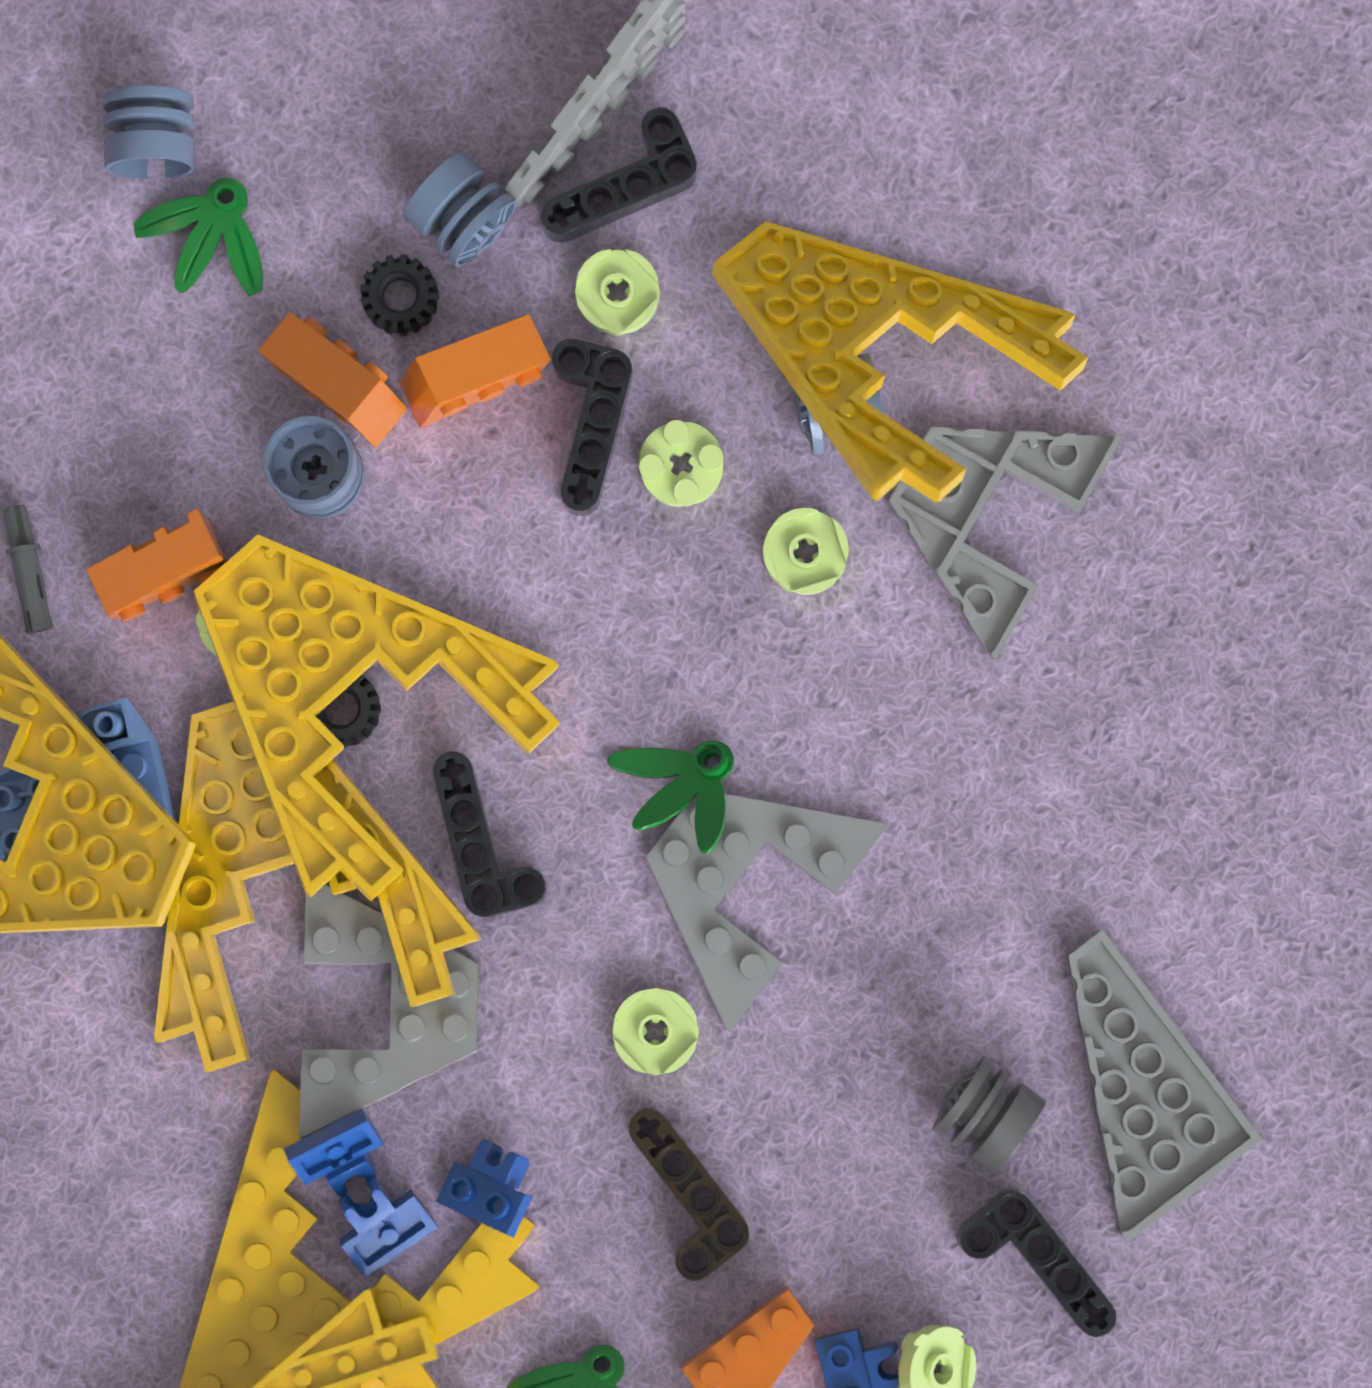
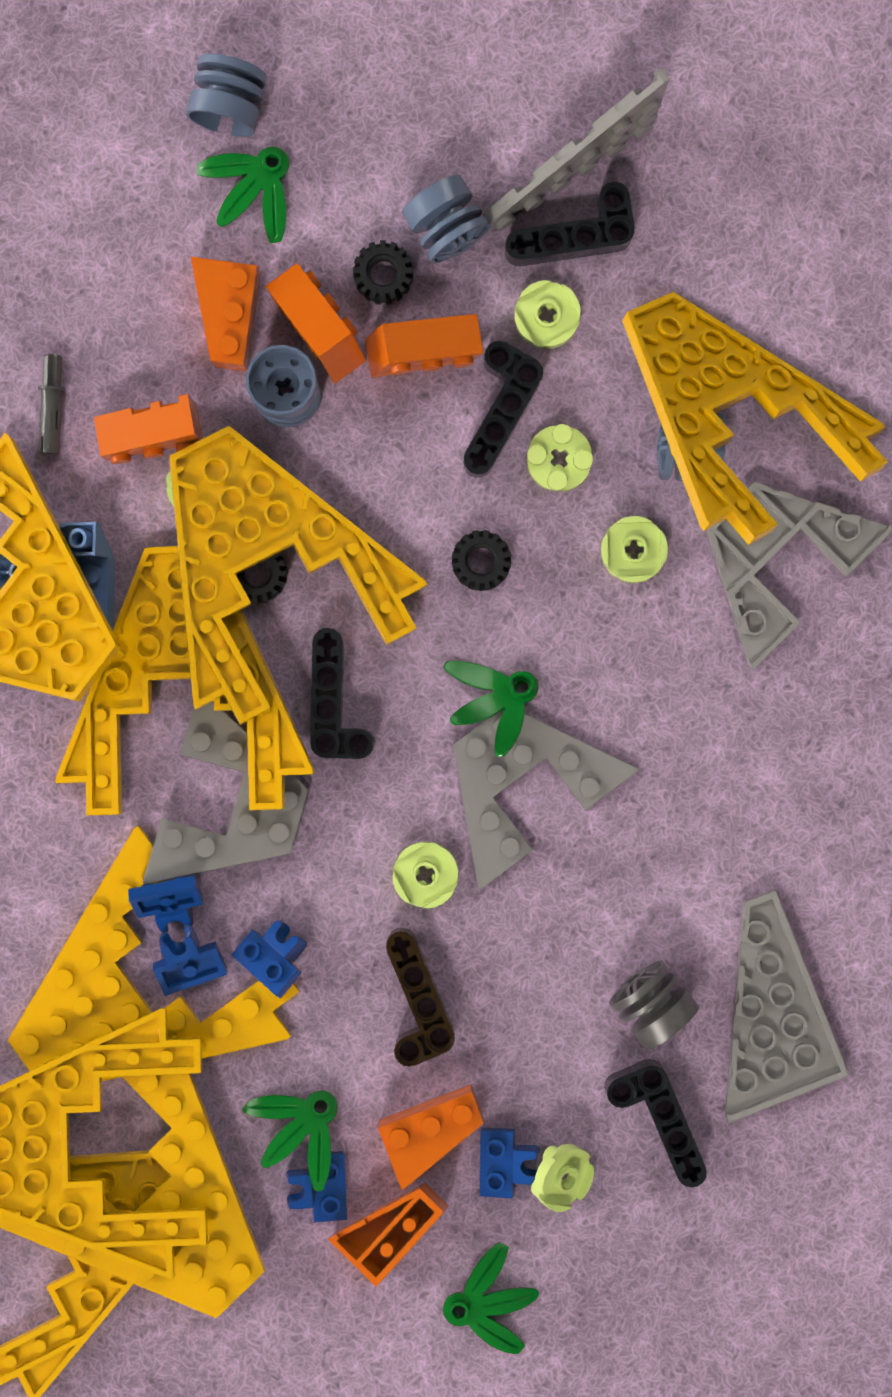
camera: 10 degrees right, 5 degrees up
(219, 392) = (228, 309): none -> orange wedge
(608, 592) = (496, 546): none -> black tyre

